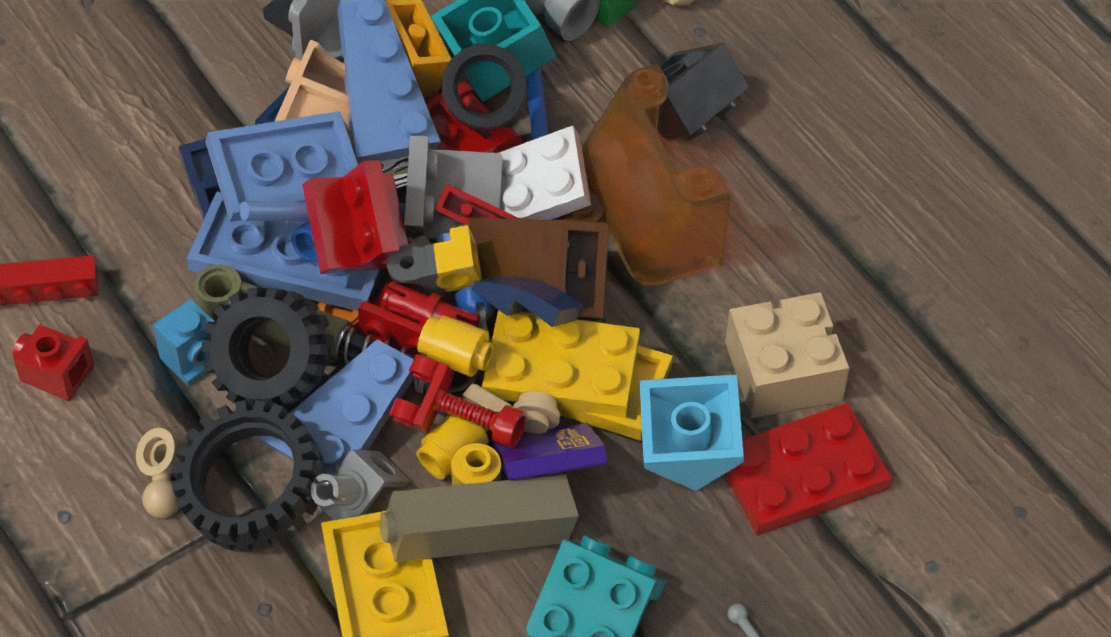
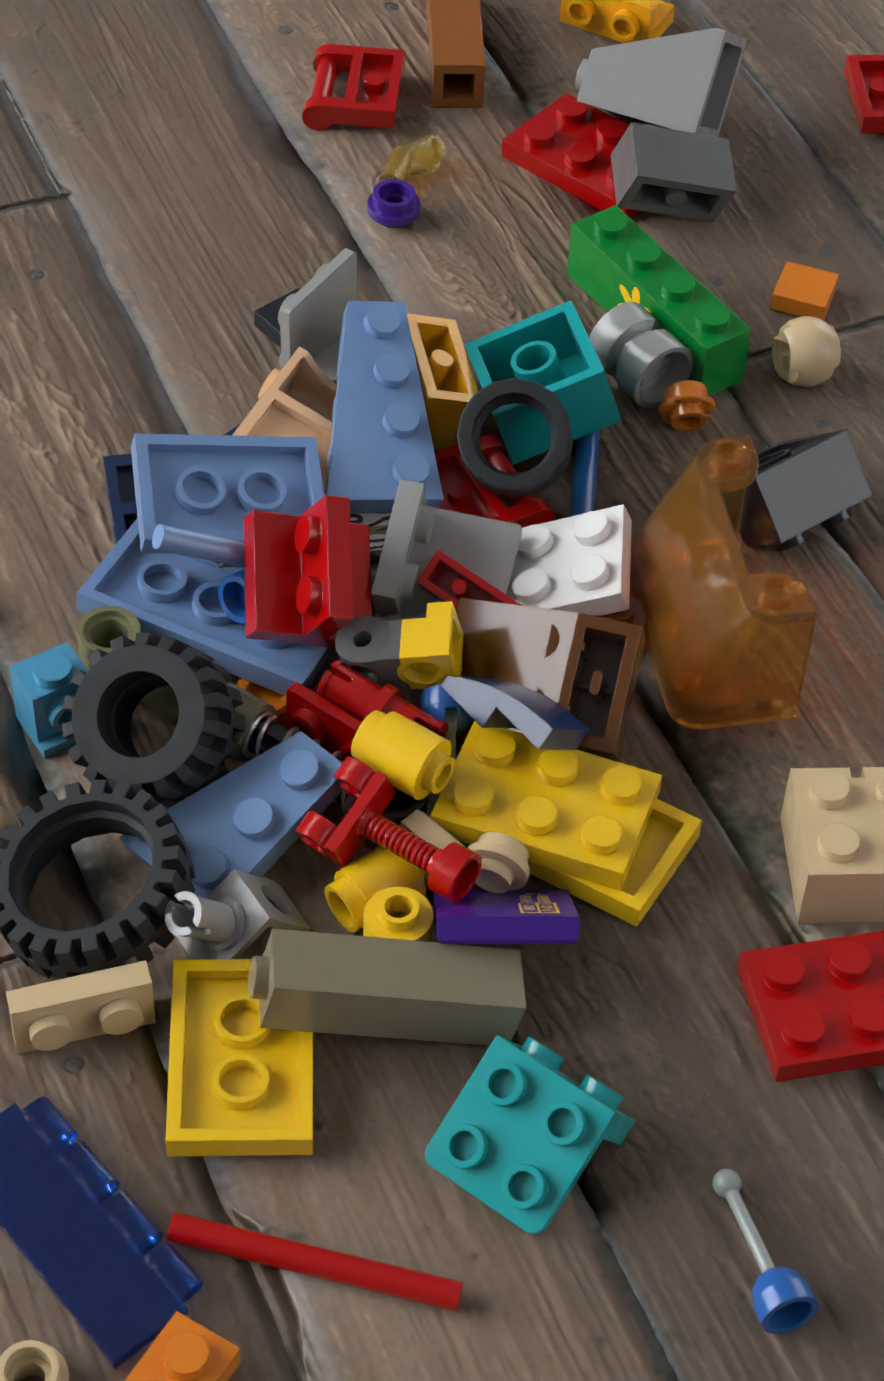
camera: 10 degrees right, 5 degrees down
(263, 568) = (81, 1007): none -> tan plate
(600, 35) = (686, 405): none -> orange plate
(691, 428) = (707, 918): medium azure slope -> none

